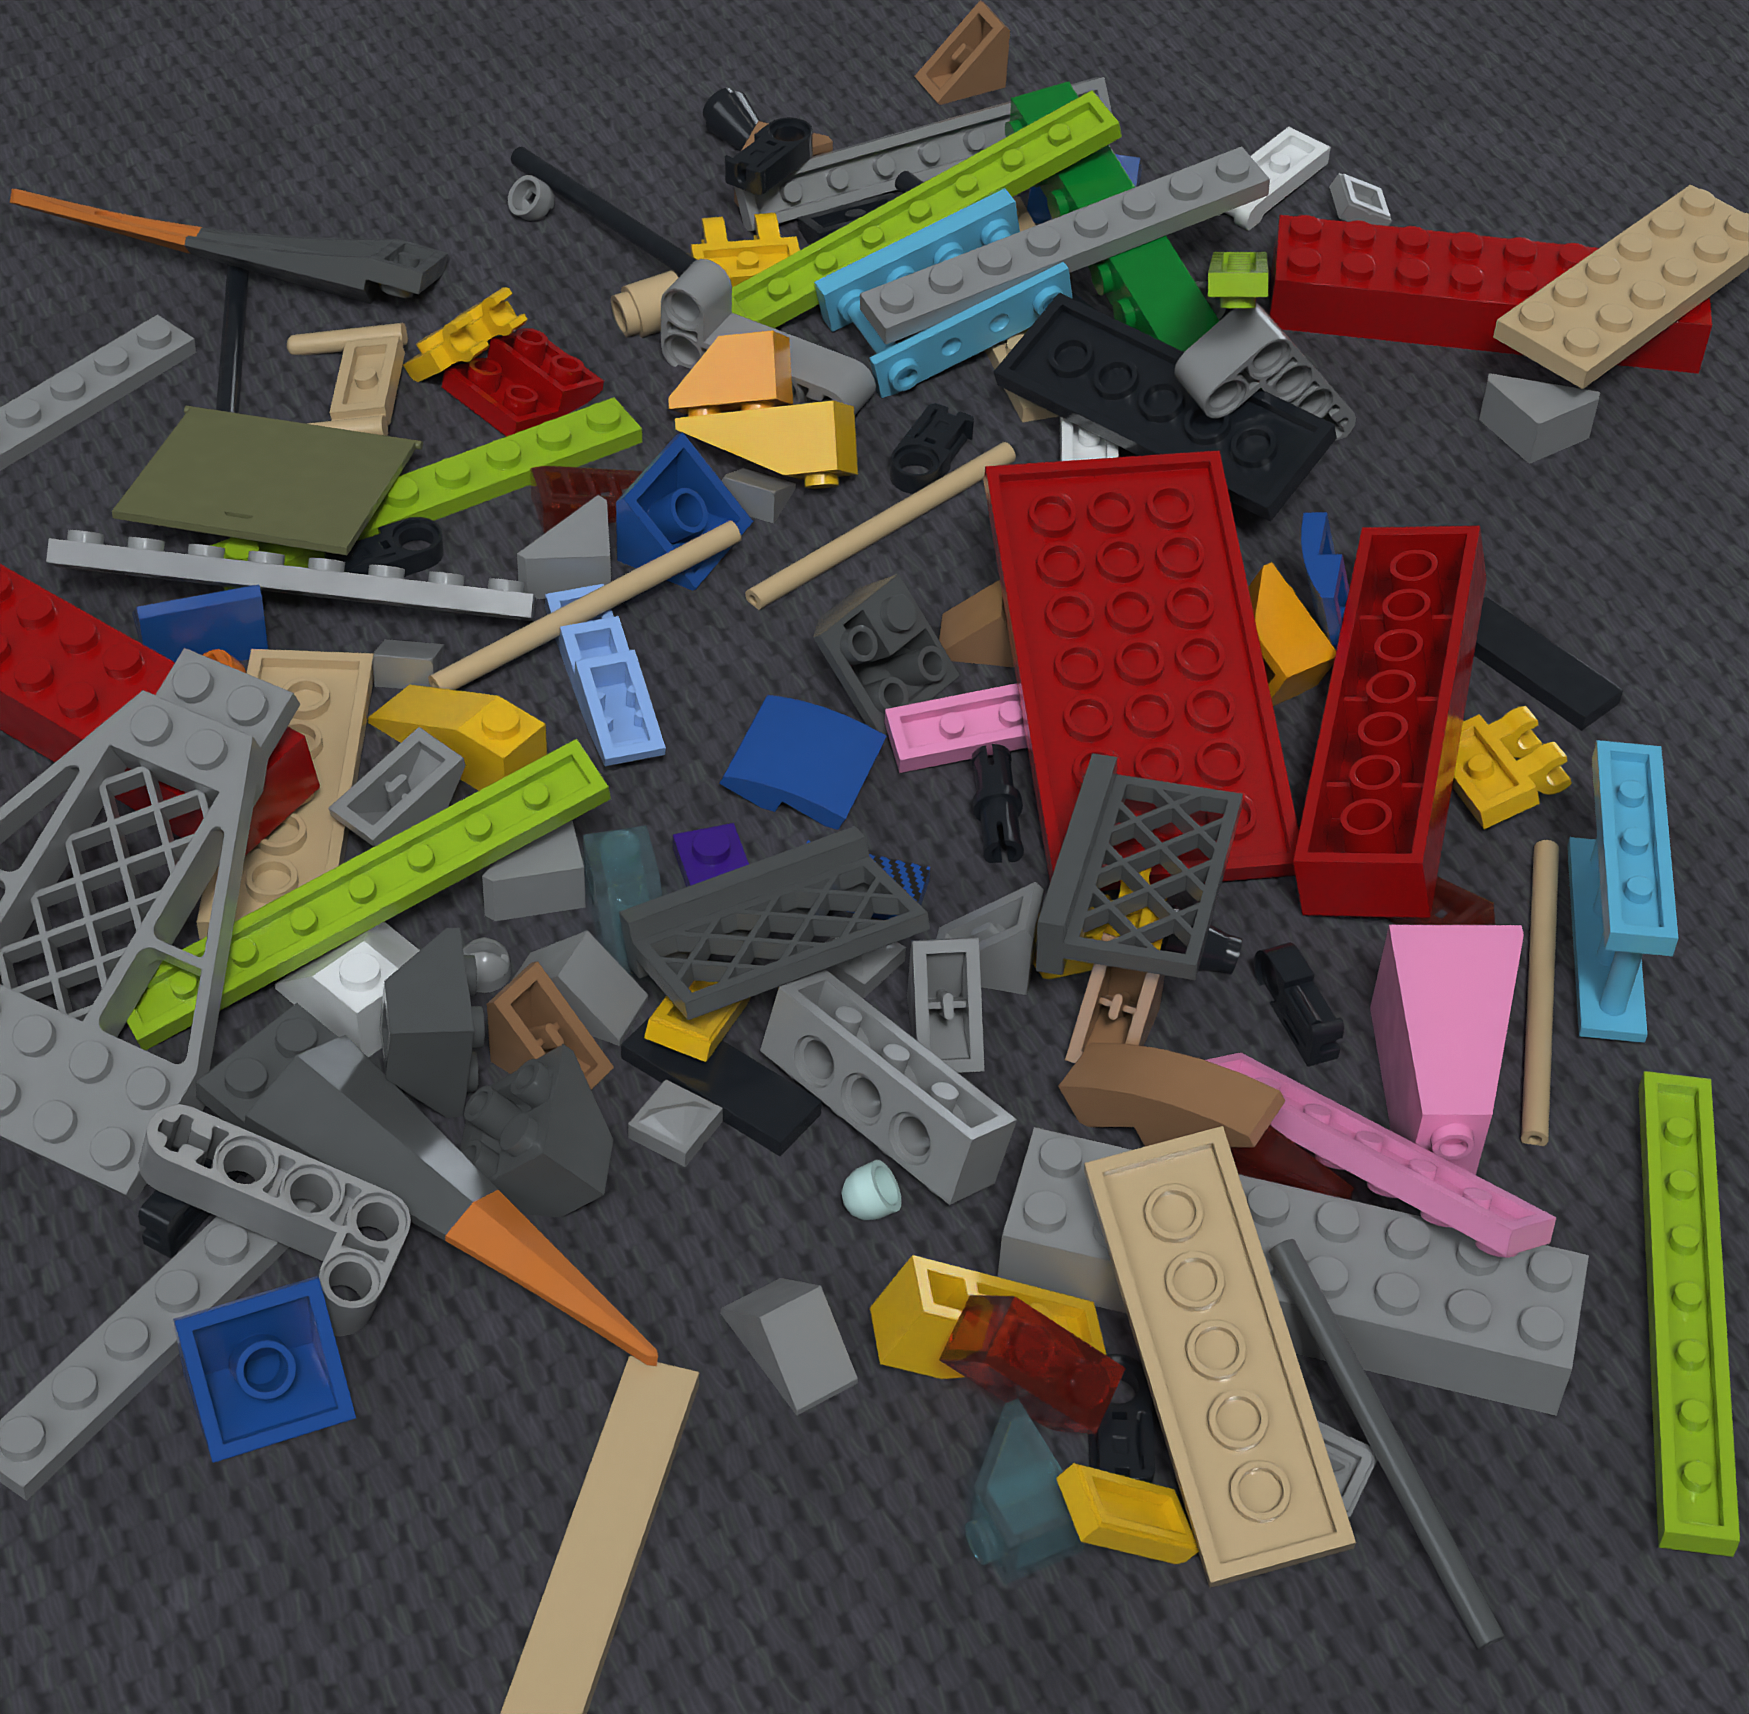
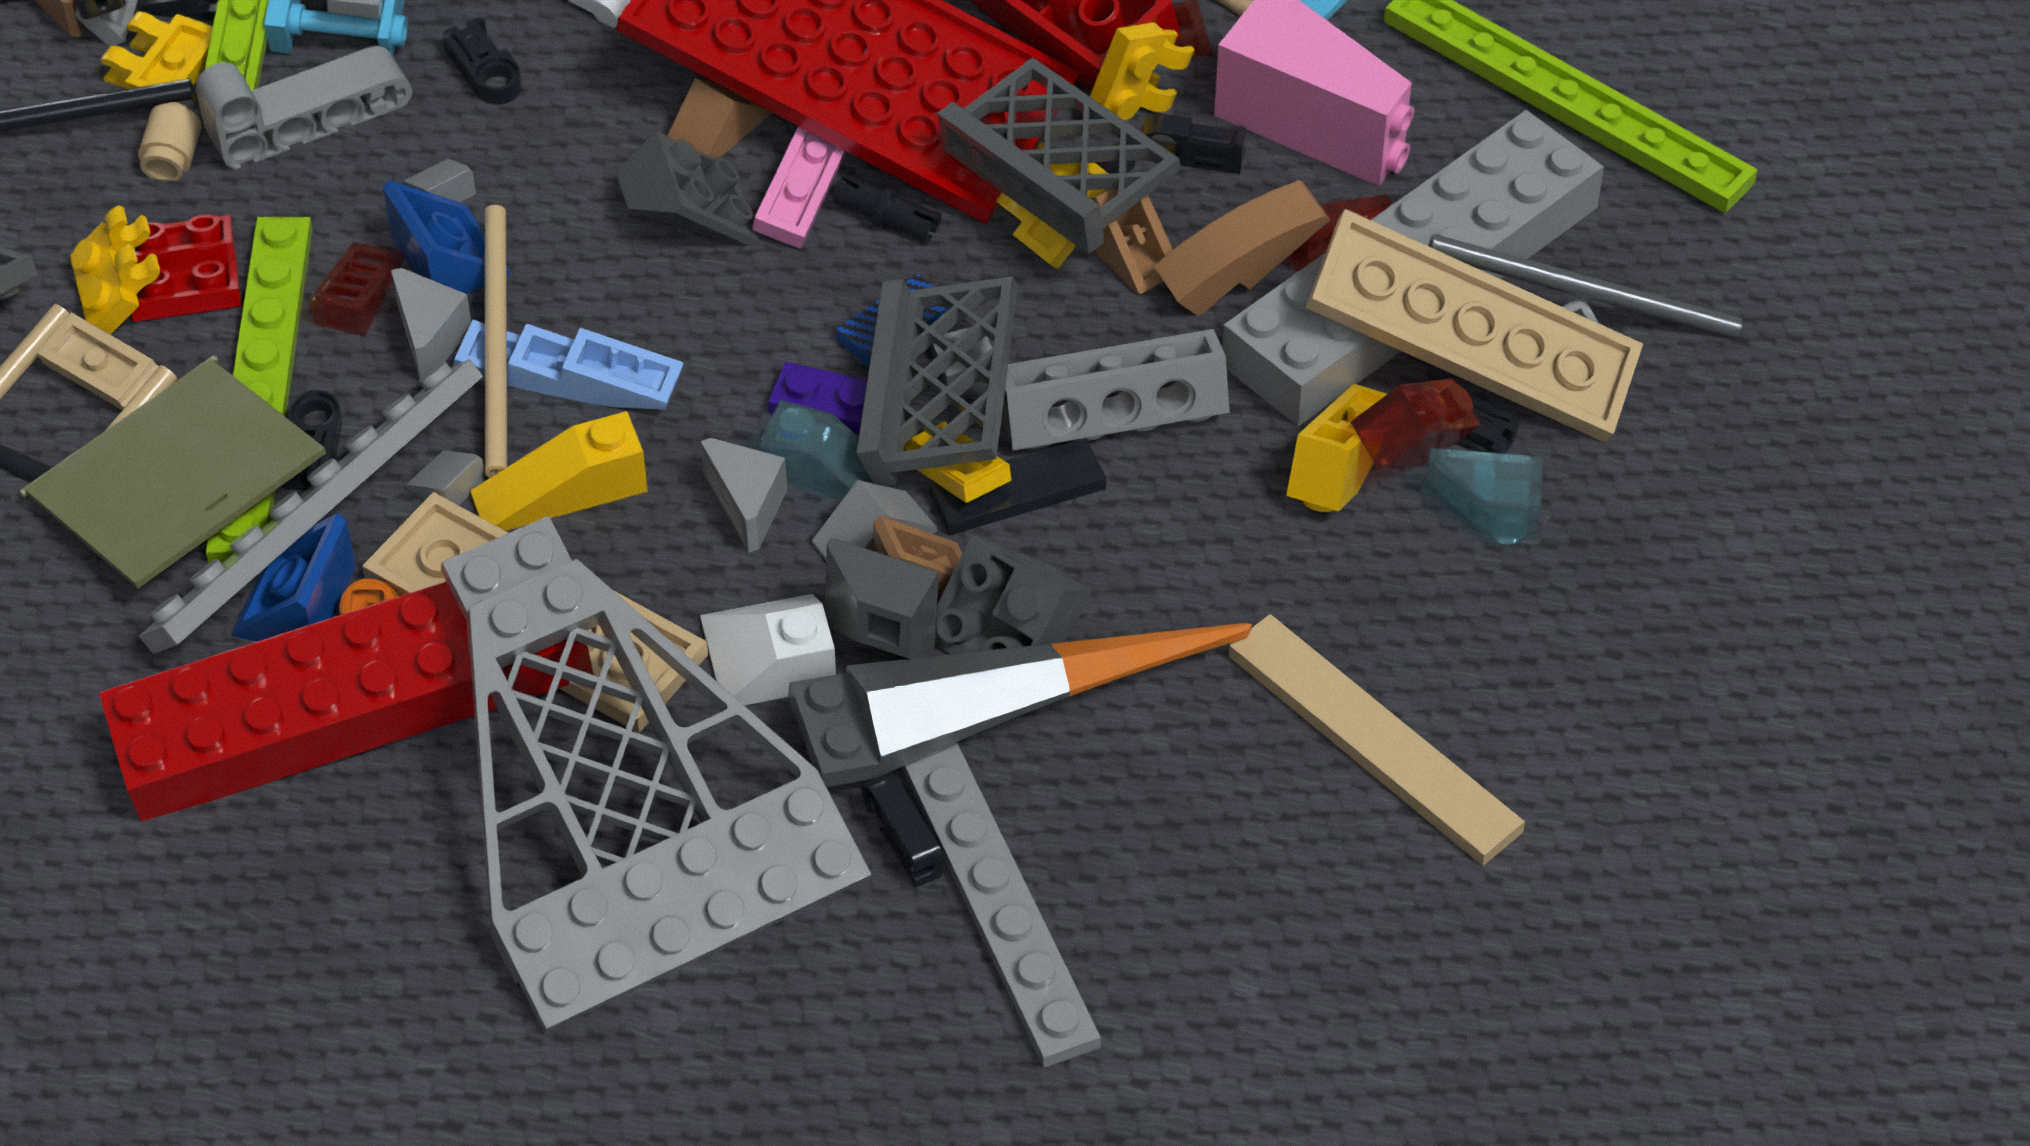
camera: 55 degrees left, 5 degrees up
(263, 1369) = (1105, 853): blue slope -> none
(269, 1206) = (1014, 745): light grey beam -> none
(379, 885) = (716, 571): lime plate -> none
(401, 789) = (614, 530): light grey slope -> none
(491, 963) = (811, 575): light grey hinge -> none
(675, 1123) = (1039, 528): light grey tile -> none
(737, 374) = (328, 123): light orange slope -> none
(793, 1341) = (1272, 550): light grey slope -> none
(795, 440) = (420, 131): yellow slope -> none
(803, 759) = (752, 292): blue slope -> none
(871, 1192) = (1185, 451): light aqua hinge -> none
(877, 527) = (539, 132): tan piece -> none
(947, 1000) = (1056, 320): light grey slope -> none
(1005, 938) = (1034, 258): light grey slope -> none
(1127, 1514) = (1548, 441): yellow tile -> none
(1315, 888) = (1127, 74): none -> yellow plate
(1401, 1168) = (1395, 159): bright pink plate -> none

